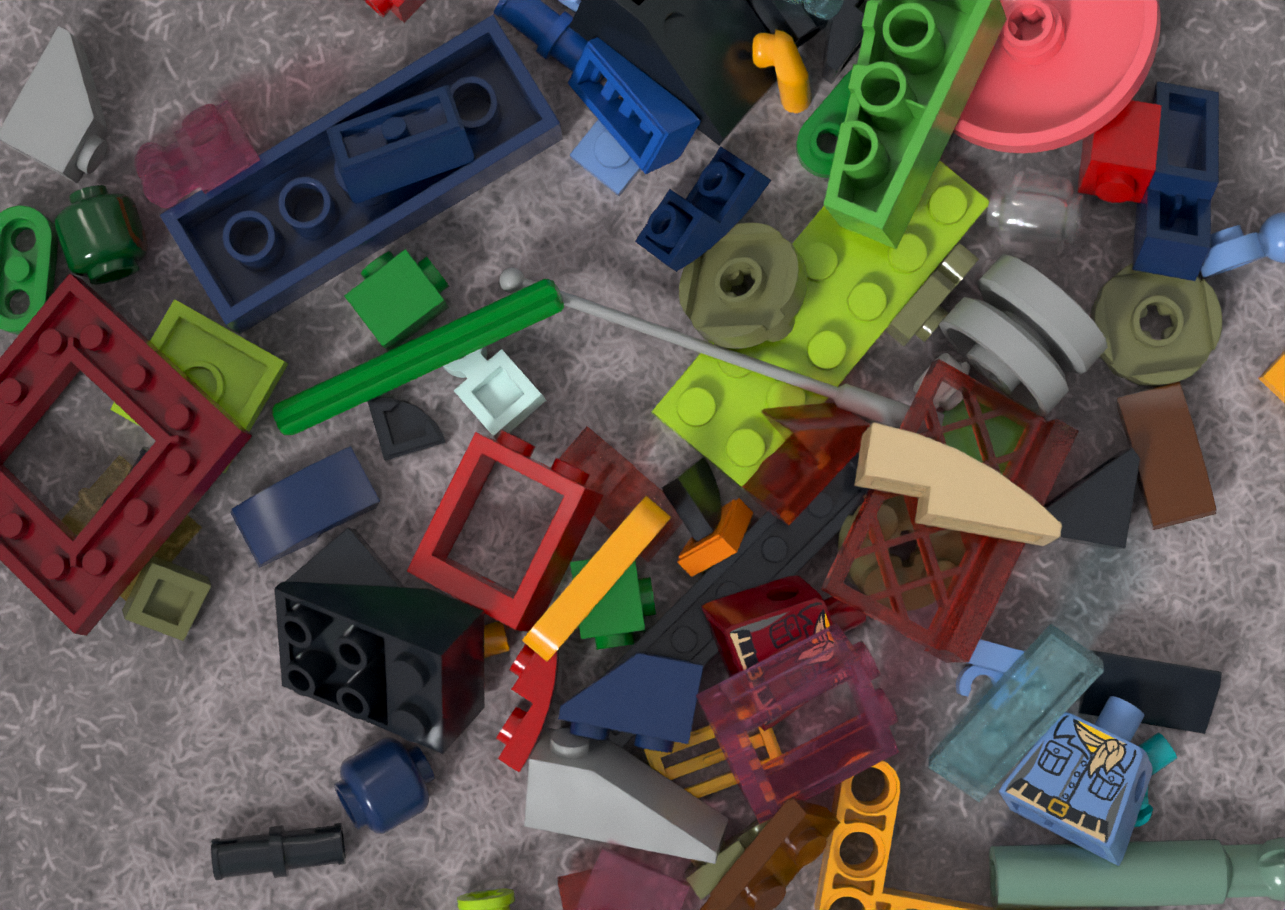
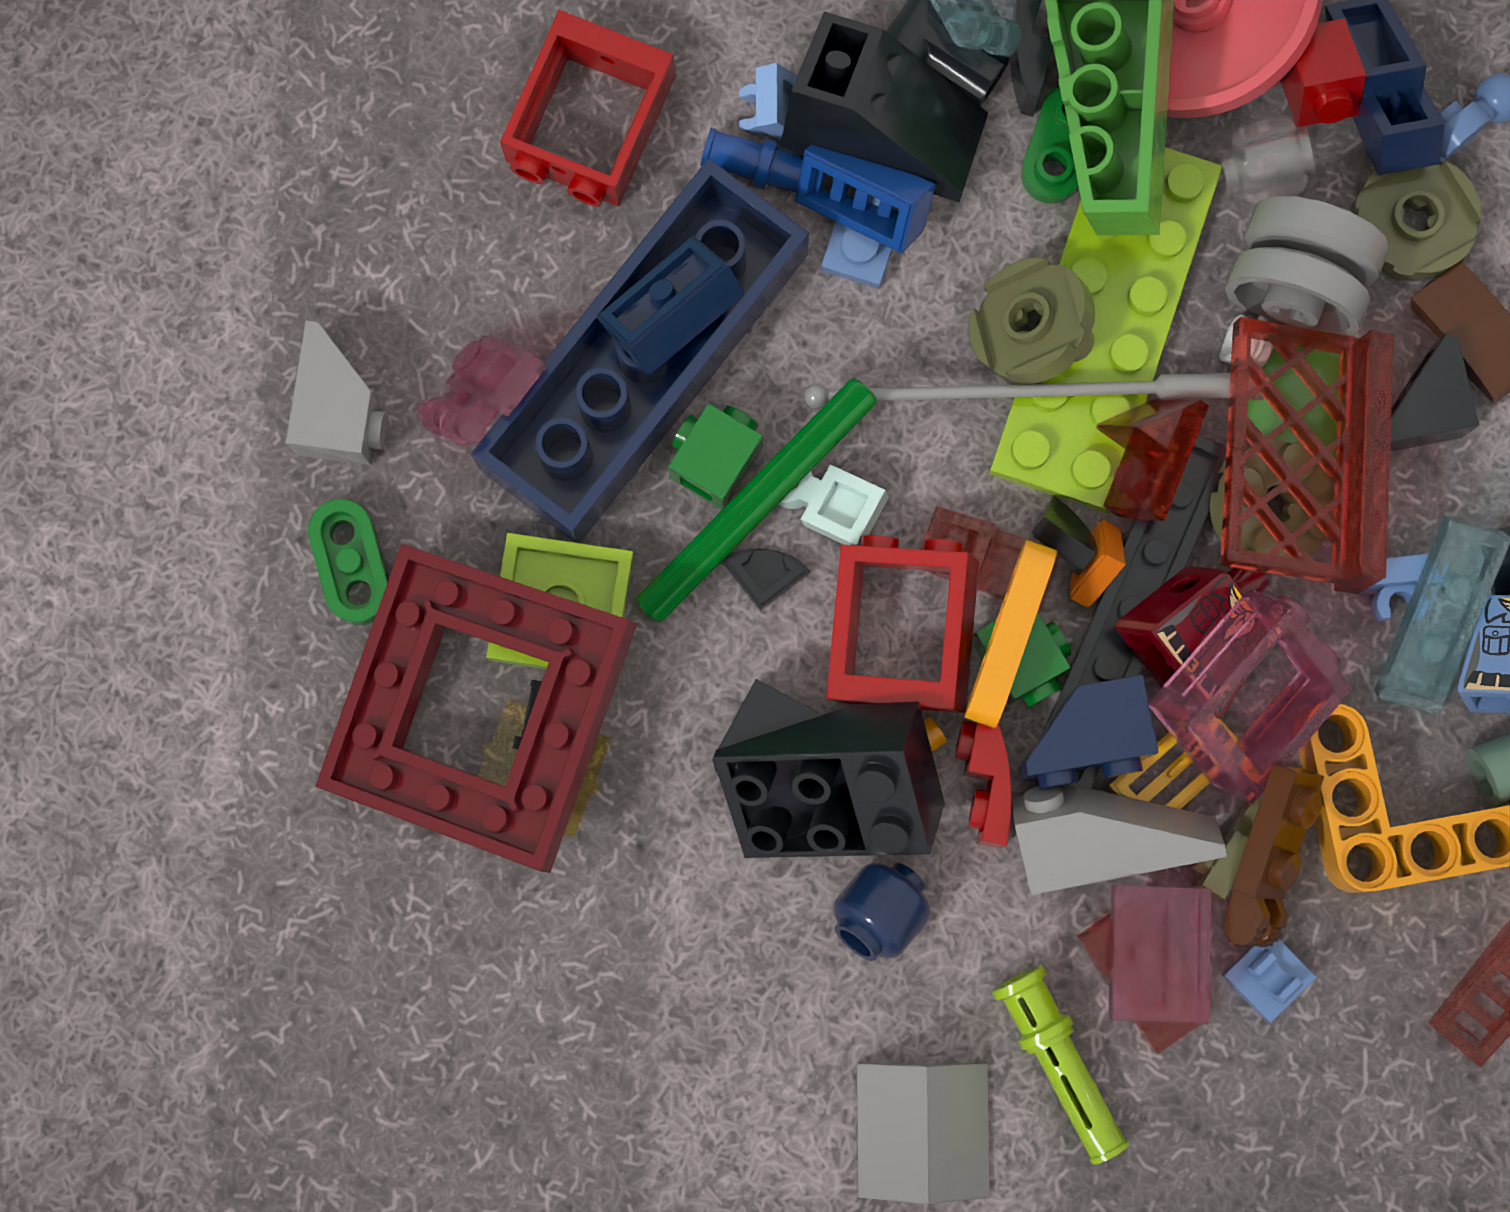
camera: 20 degrees left, 5 degrees down
(101, 235) = (416, 499): dark green head -> none
(166, 598) = (607, 814): olive plate -> none
(278, 851) = (805, 1013): black pin -> none
(304, 506) = (703, 679): dark blue slope -> none
(689, 227) = (974, 256): dark blue slope -> none
(791, 72) = (995, 112): light orange arm -> none
(923, 311) = (1203, 284): olive plate -> none
(951, 487) = (1306, 422): tan slope -> none

